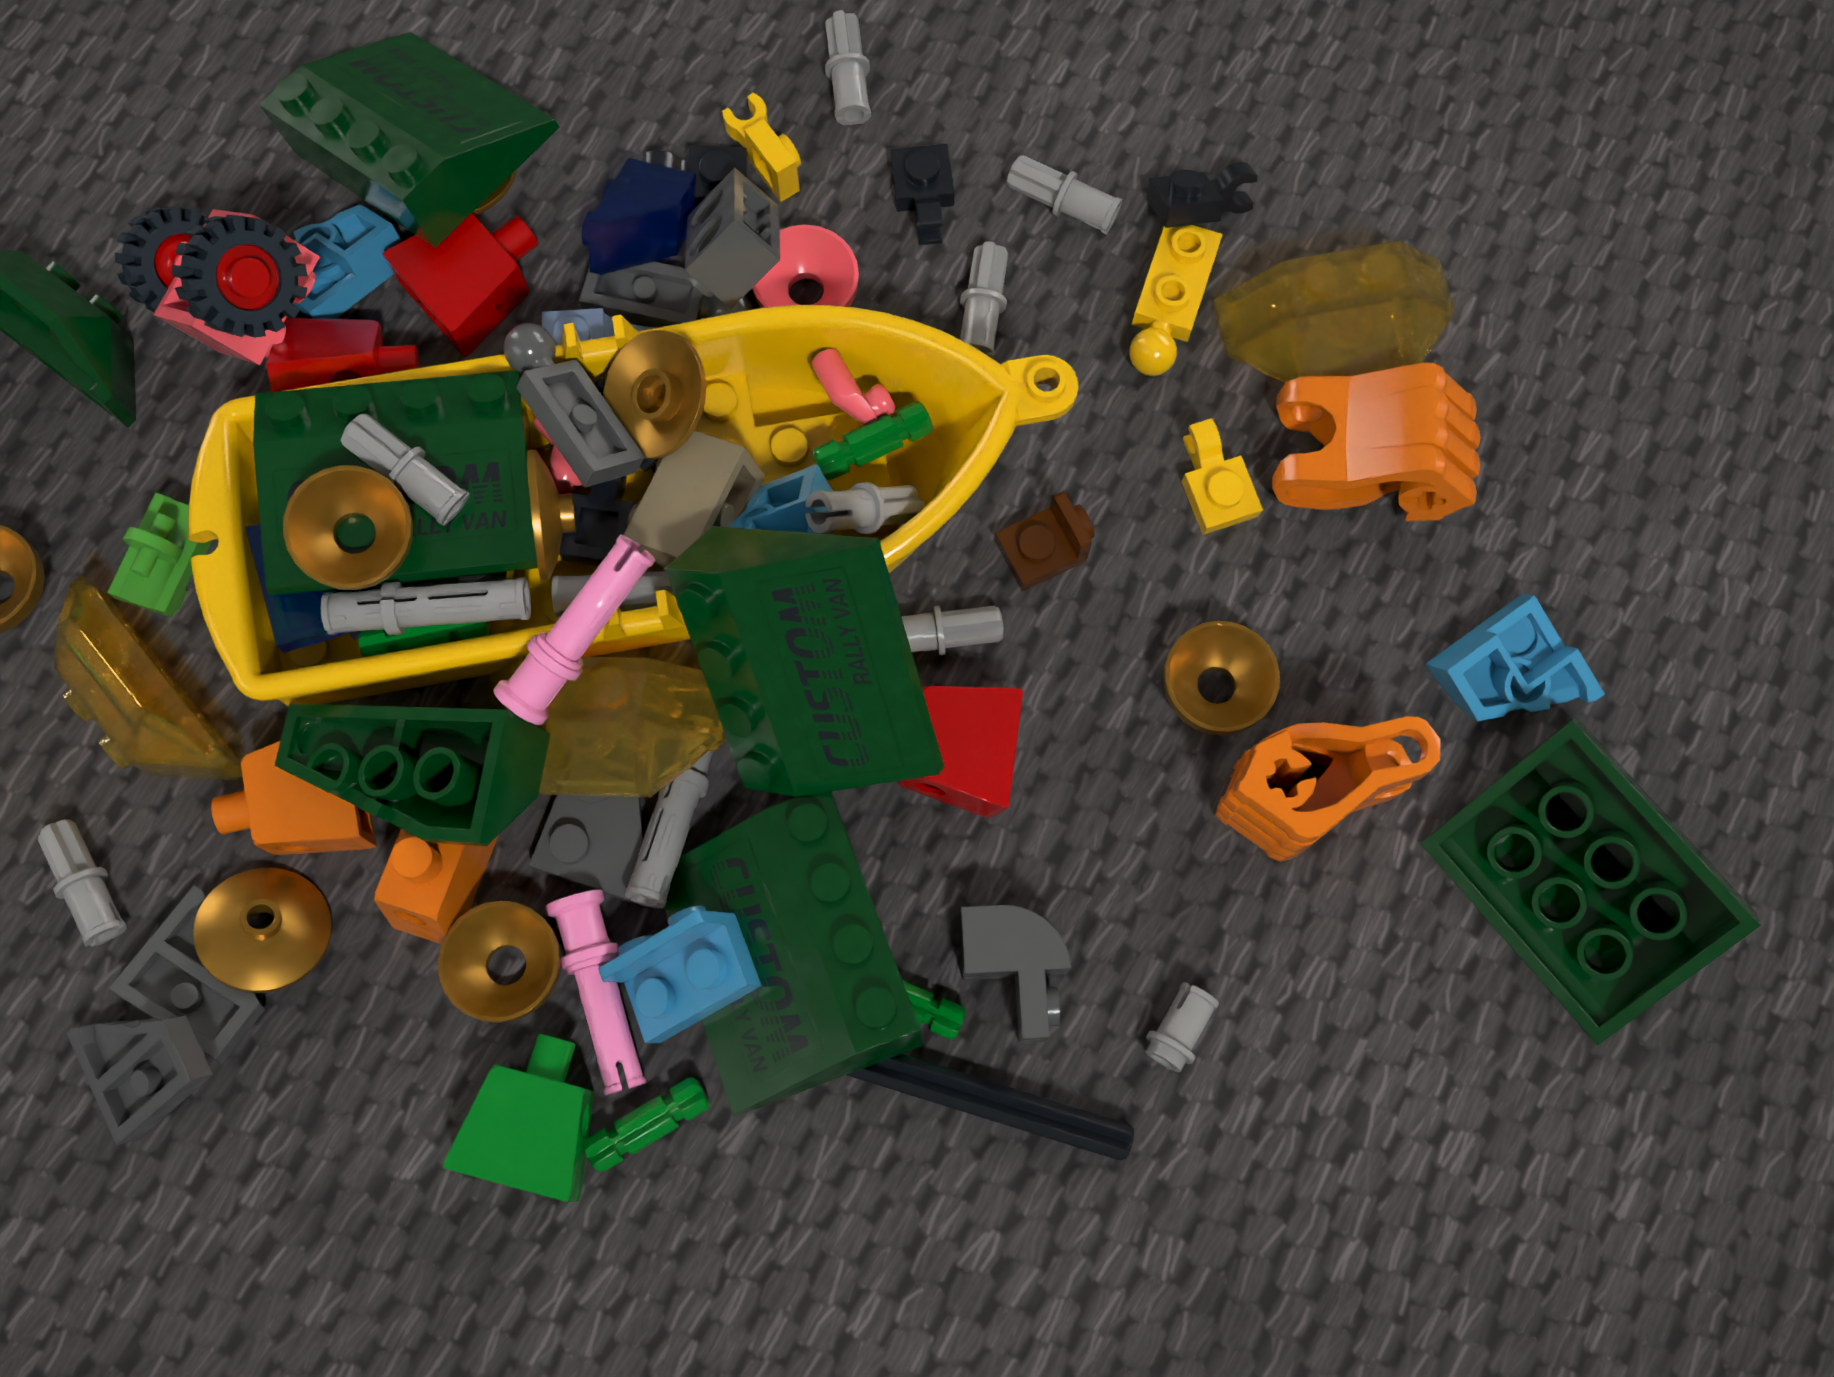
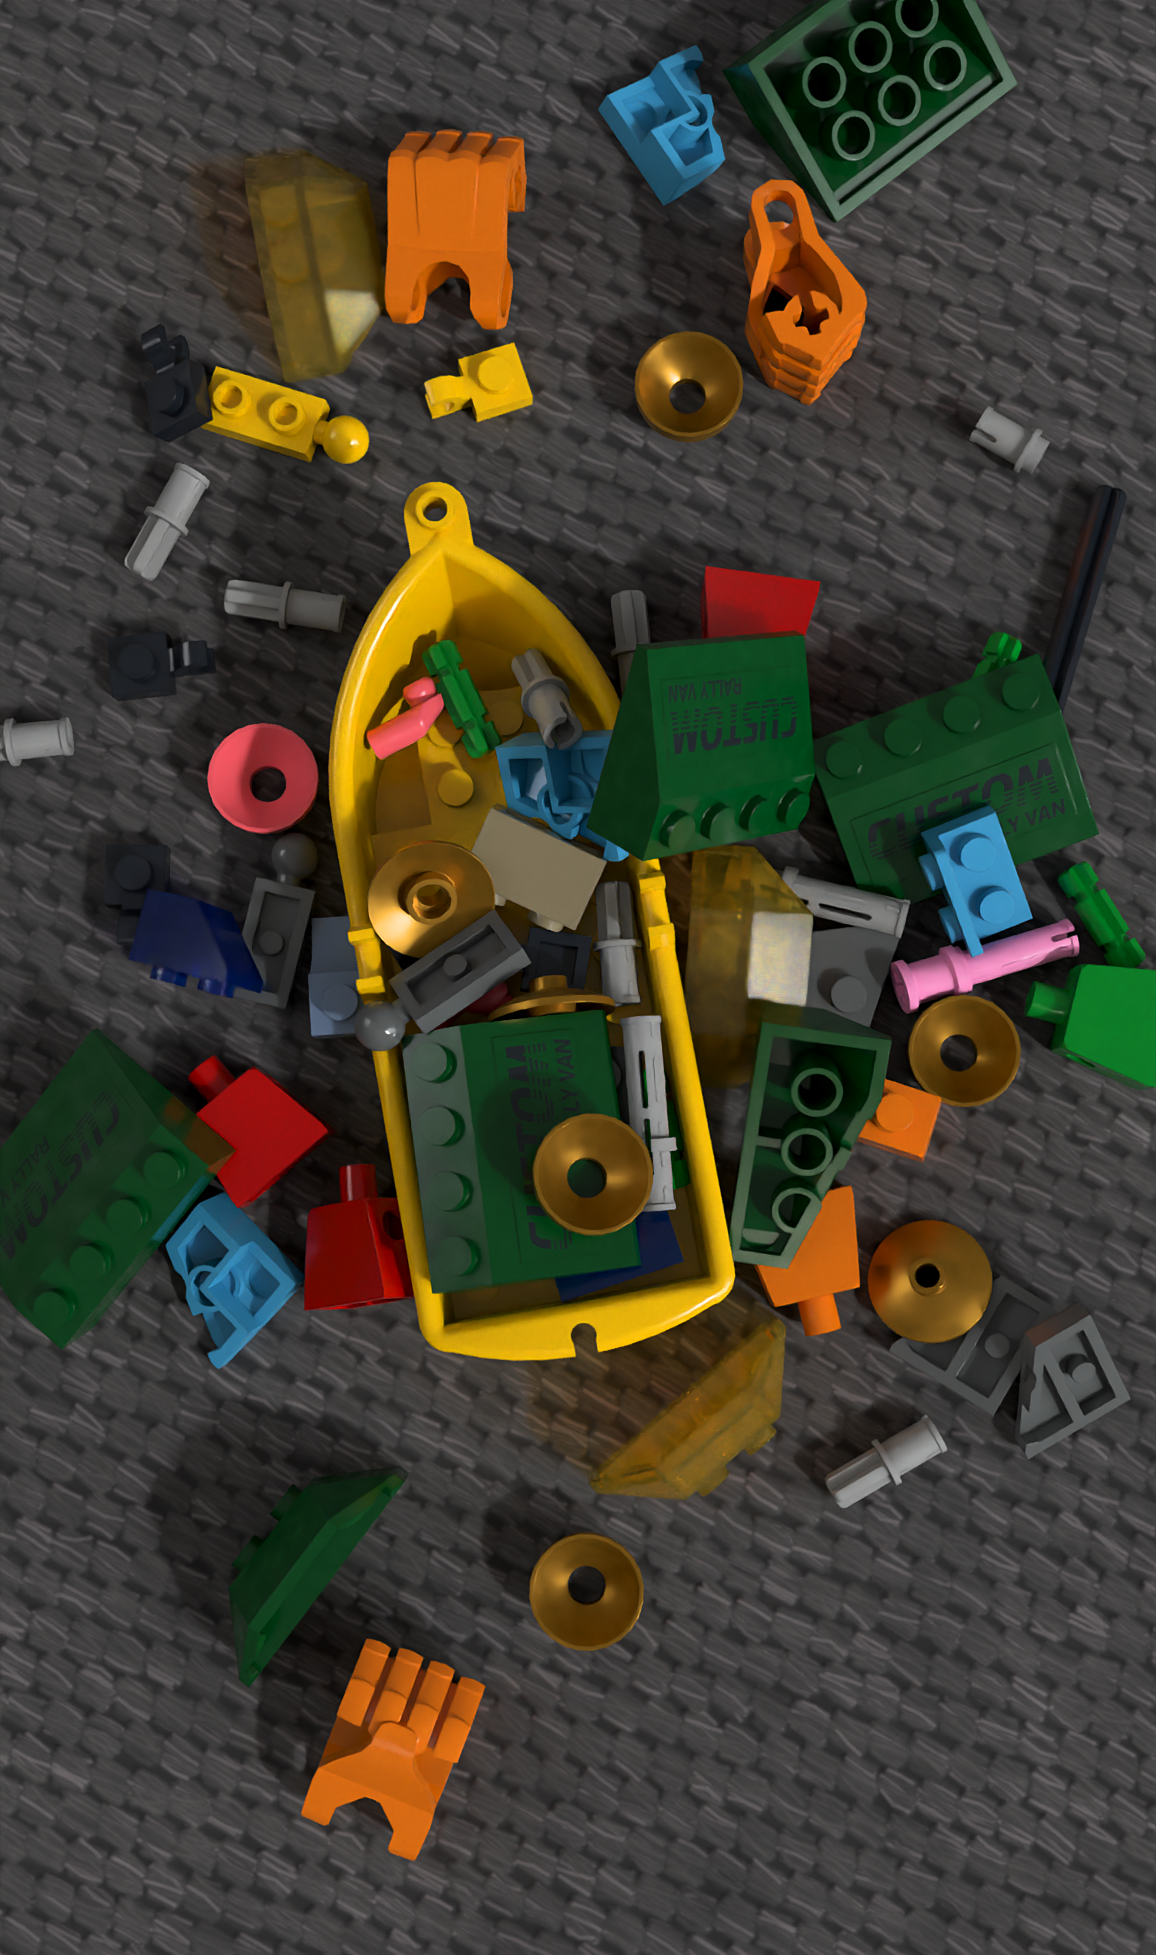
camera: 85 degrees left, 10 degrees up
(158, 559) = (561, 1409): bright green hips -> none
(217, 276) = (277, 1363): black brick -> none
(404, 468) = (523, 1129): light grey axle -> none
(558, 654) = (702, 980): bright pink pin -> none
(732, 239) = (231, 844): dark grey brick -> none
(769, 154) = (118, 818): yellow plate -> none
(1020, 946) = (943, 583): dark grey brick -> none
(1046, 542) = (545, 547): reddish brown bracket -> none

